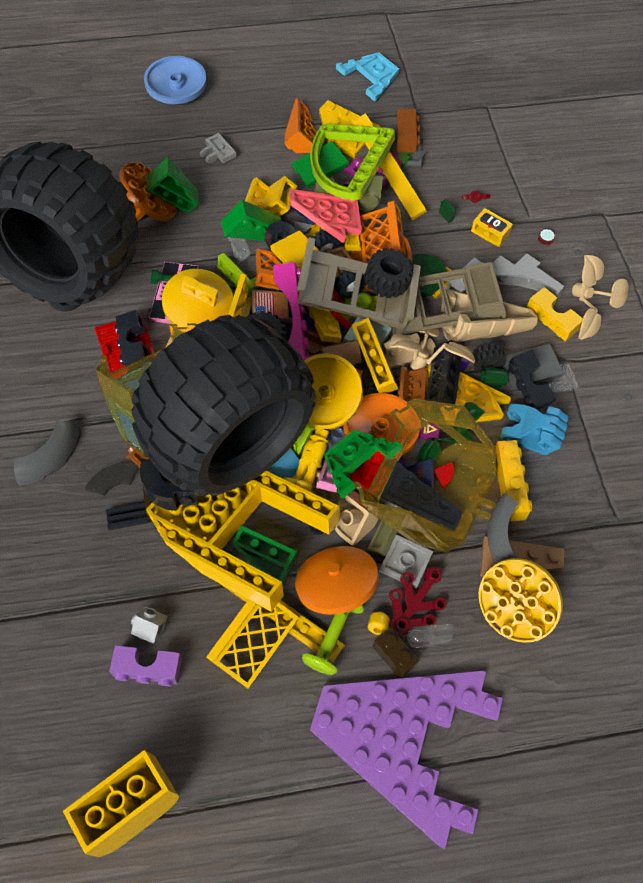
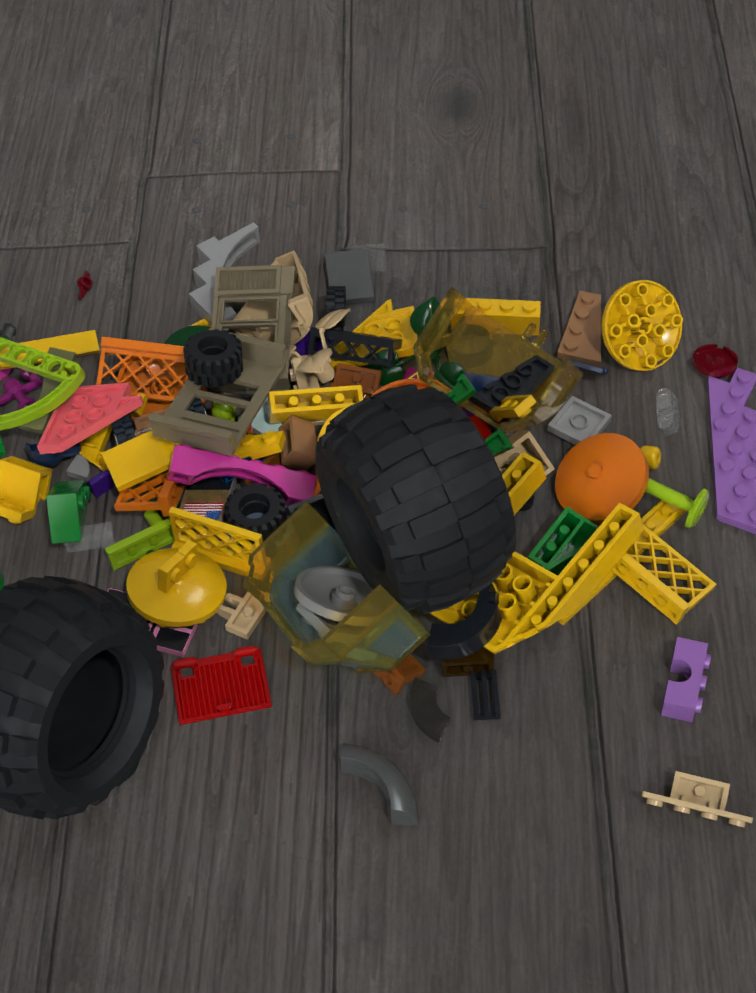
camera: 75 degrees left, 10 degrees down
(33, 682) = (698, 794): none -> tan bracket
(128, 328) = (246, 668): black arch -> none
(148, 624) = (637, 670): light grey brick -> none
(278, 230) = (97, 478): black dish -> none
(374, 488) = (513, 407): none -> yellow plate
(382, 540) = (551, 439): olive tile -> none
(395, 653) = (687, 444): dark brown brick -> none
(414, 602) = (648, 435): dark red plant -> none
(445, 474) = (483, 365): red tile -> none
(447, 211) = (101, 312): dark green tile -> none
(469, 560) = (590, 367): none -> dark blue piece
(491, 227) = (141, 274): yellow brick -> none
(494, 376) = (360, 307): dark green brick -> none
(498, 529) = (564, 328): dark grey brick -> none
(506, 676) = (715, 361): none -> dark red tile
(534, 395) = (358, 276): black arch -> none
(535, 430) = (435, 278): dark azure piece -> none
(546, 236) = (167, 230): tile -> none
(562, 324) = (301, 237): yellow arch -> none
(592, 272) = (261, 207): tan plant -> none

